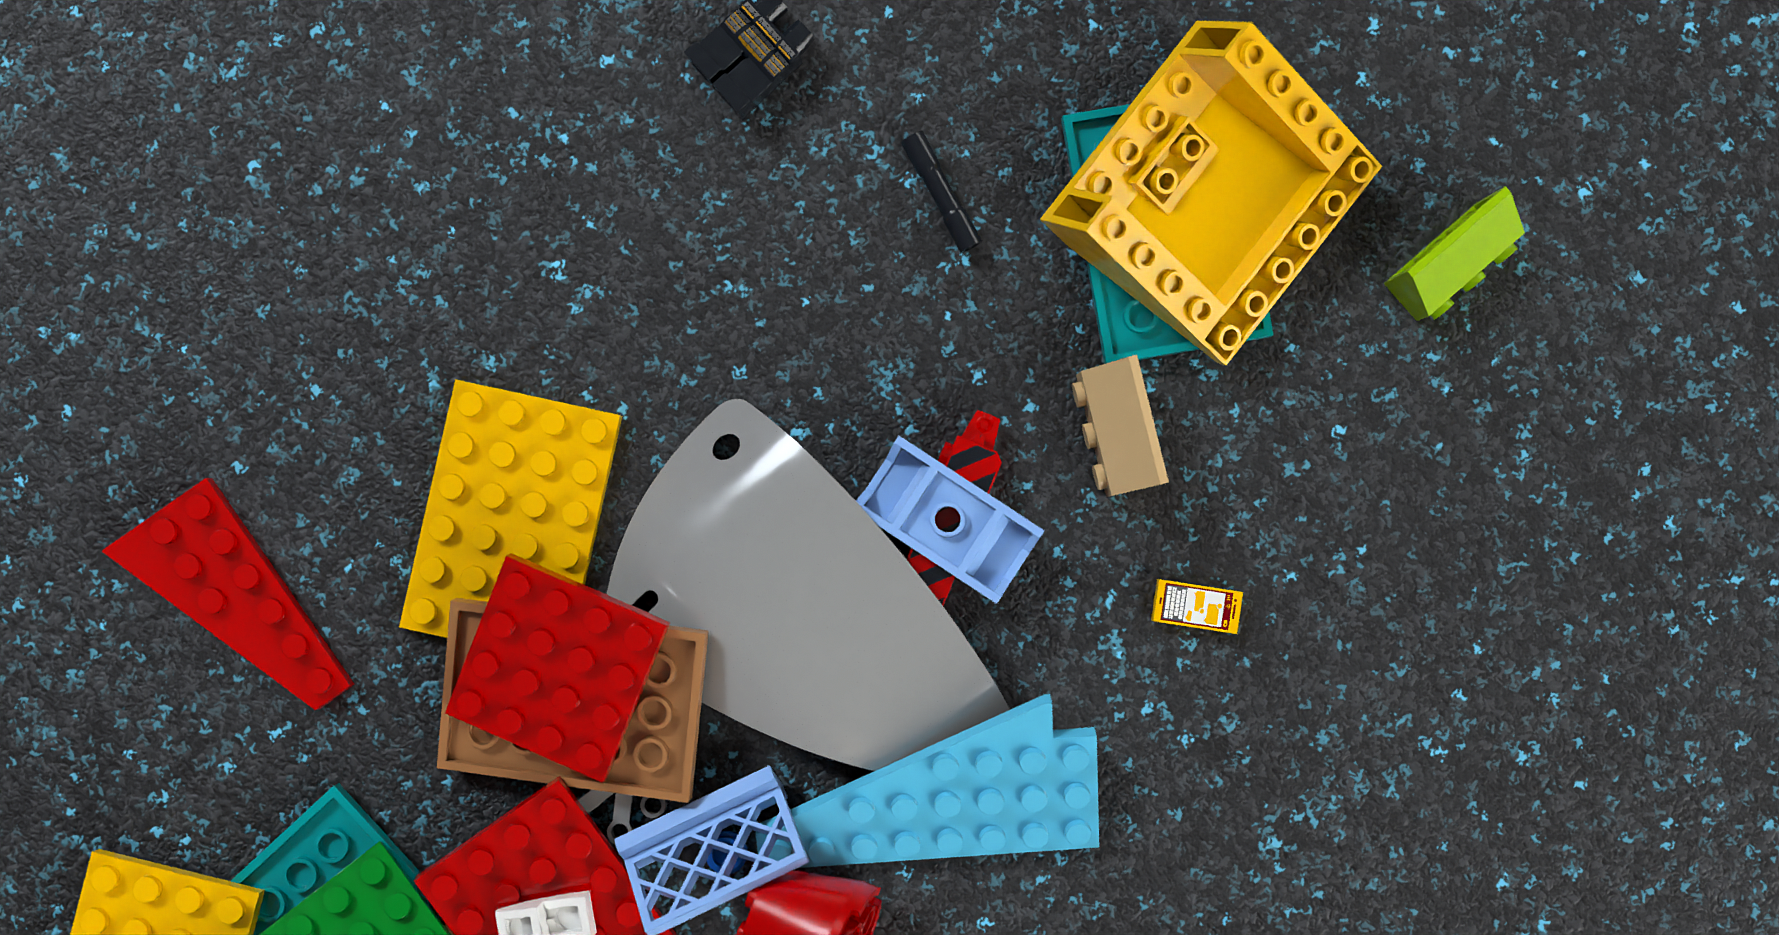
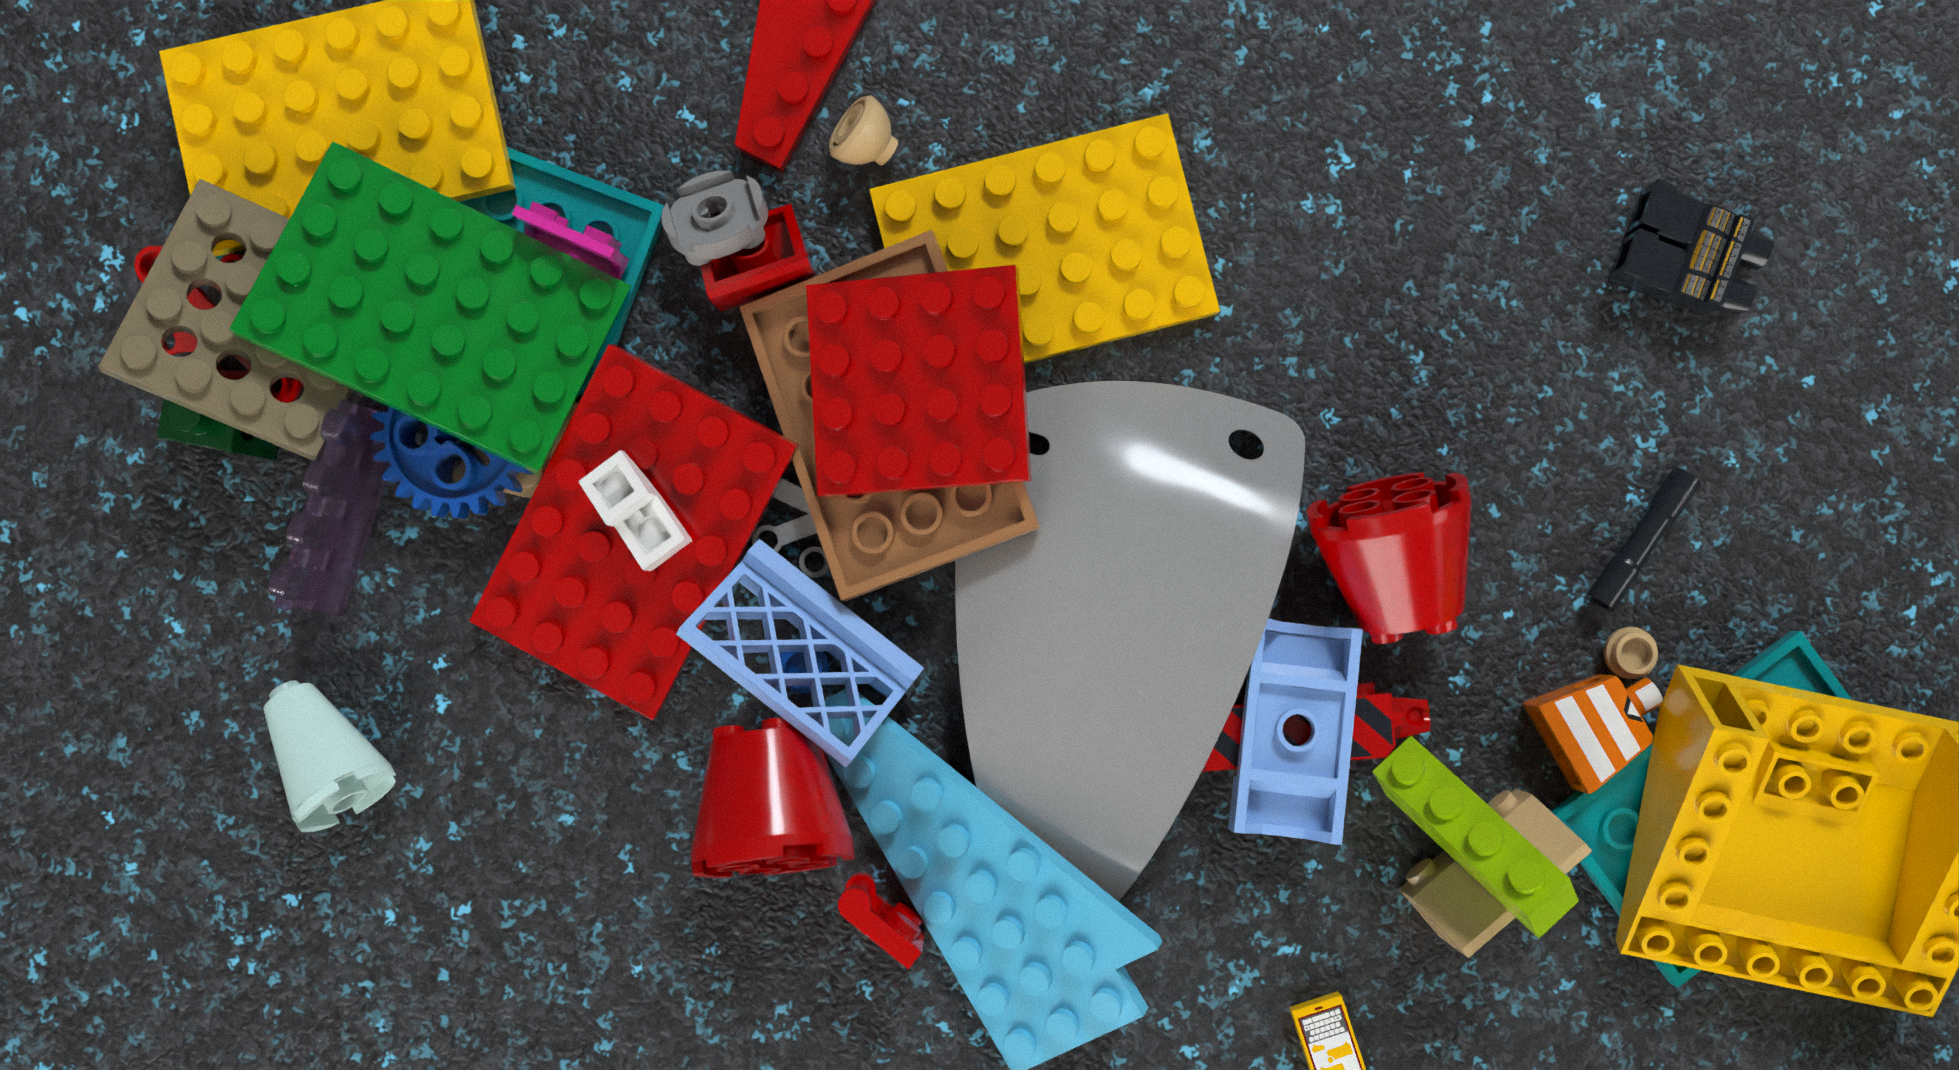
camera: 60 degrees right, 0 degrees up
(335, 858) = (591, 247): none -> dark pink piece
(356, 611) = (863, 134): none -> tan brick
(372, 768) = (708, 238): none -> light grey plate
(406, 738) = (762, 270): none -> red slope
(857, 380) = (1398, 552): none -> red cone
(944, 886) = (890, 927): none -> red plate
(1018, 243) = (1630, 653): none -> tan plate
(1057, 297) = (1594, 726): none -> orange torso
(1086, 431) = (1476, 837): none -> lime brick

